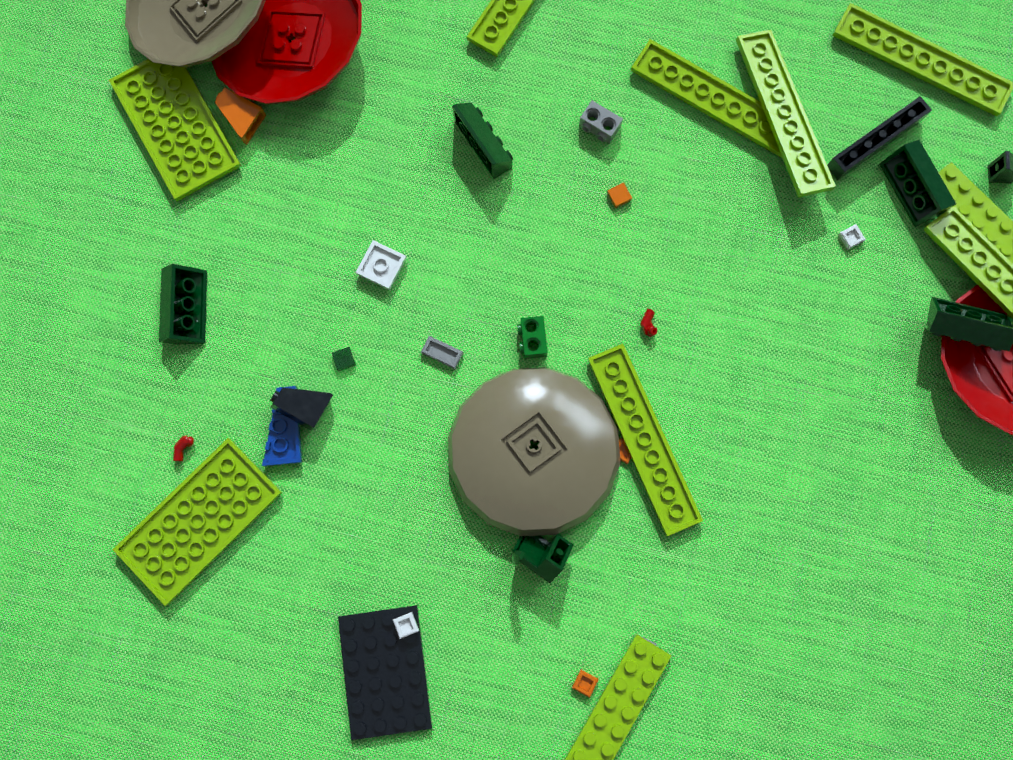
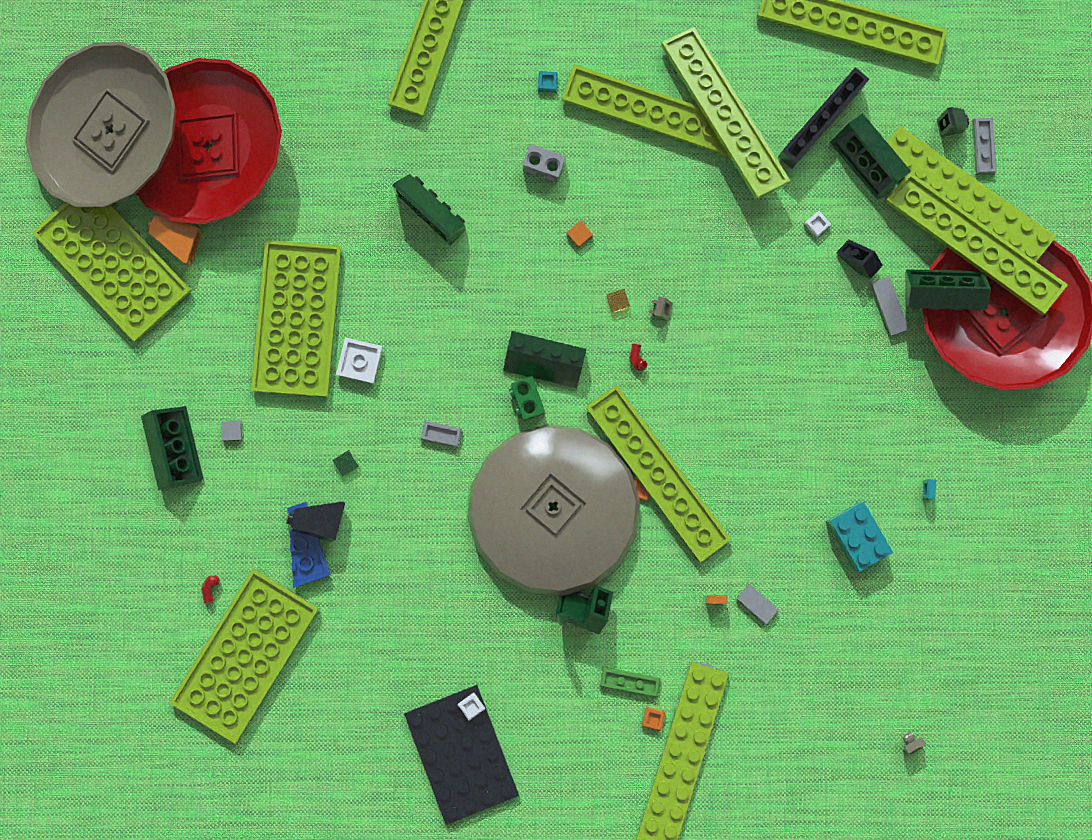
camera: 20 degrees left, 5 degrees up
(243, 303) = (231, 430): none -> light grey tile
(331, 213) = (296, 318): none -> lime plate
(558, 303) = (544, 359): none -> dark green slope
(570, 640) = (630, 682): none -> bright green tile
(621, 50) = (547, 81): none -> teal tile
(642, 265) = (618, 300): none -> clear orange tile
(675, 577) = (716, 599): none -> orange tile
(684, 281) = (663, 308): none -> dark tan tile
(715, 592) = (757, 603): none -> light grey tile
(833, 548) = (859, 536): none -> teal brick
(888, 278) = (860, 258): none -> black slope
(907, 330) = (889, 306): none -> light grey tile
(913, 518) = (929, 489): none -> teal tile

